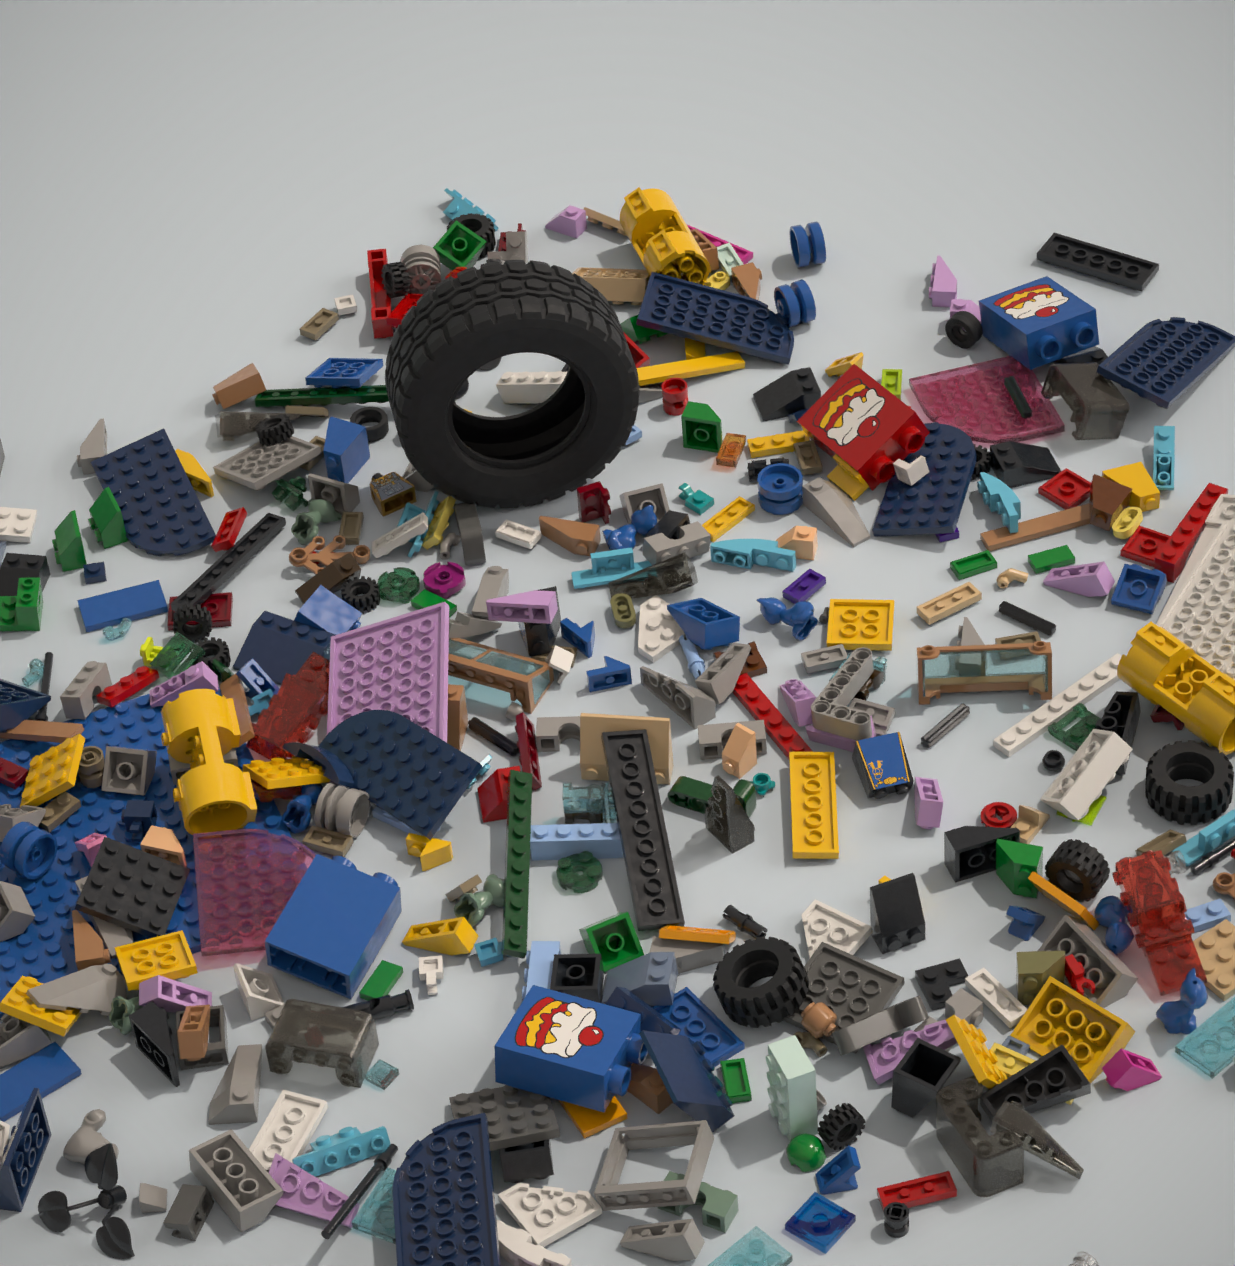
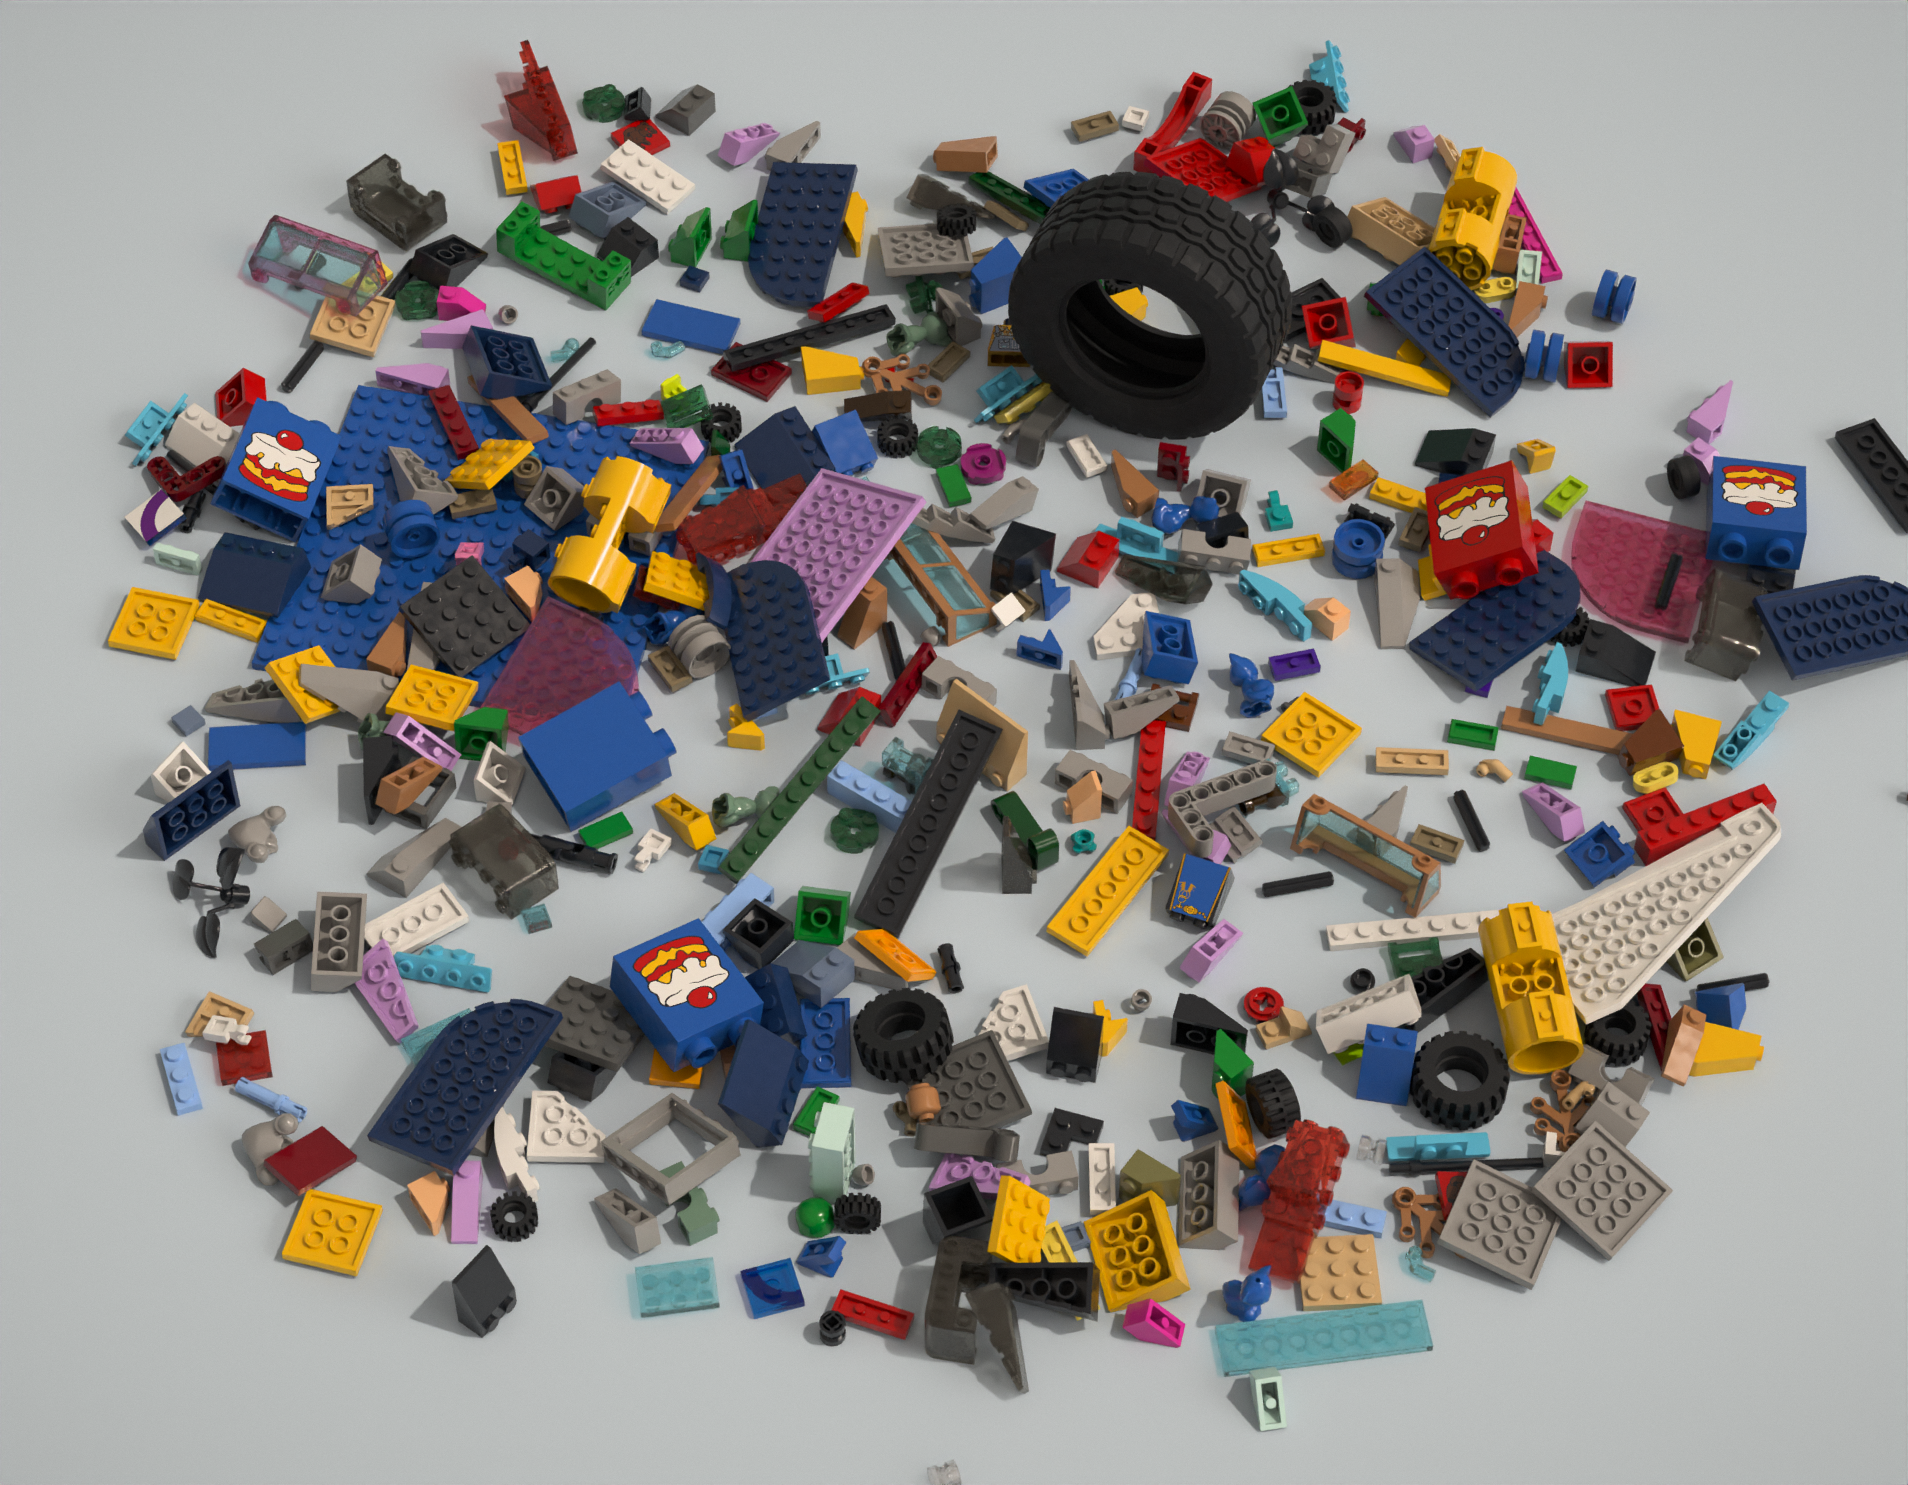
camera: 30 degrees right, 10 degrees up
(53, 462) = (745, 143): none -> lavender slope
(196, 614) = (727, 381): black tyre -> none
(217, 963) = (478, 729): none -> green slope
(265, 578) = (830, 371): none -> yellow slope
(381, 1163) = (465, 1001): black bar -> none
(395, 279) = (1192, 119): black tyre -> none
(400, 535) = (976, 396): white plate -> none
(467, 887) = (738, 787): dark tan plate -> none
(524, 607) = (1001, 541): lavender slope -> none
(585, 597) = (1090, 558): none -> red slope
(623, 610) = (1108, 594): olive plate -> none
(830, 295) = (1588, 364): none -> red slope
(904, 860) = (1138, 996): none -> light grey hinge
(911, 472) = (1492, 604): white panel -> none
(1074, 973) = (1184, 1199): red plate -> none
(1130, 799) = (1386, 1064): none -> blue slope
(1165, 842) = (1381, 1125): dark tan tile -> none

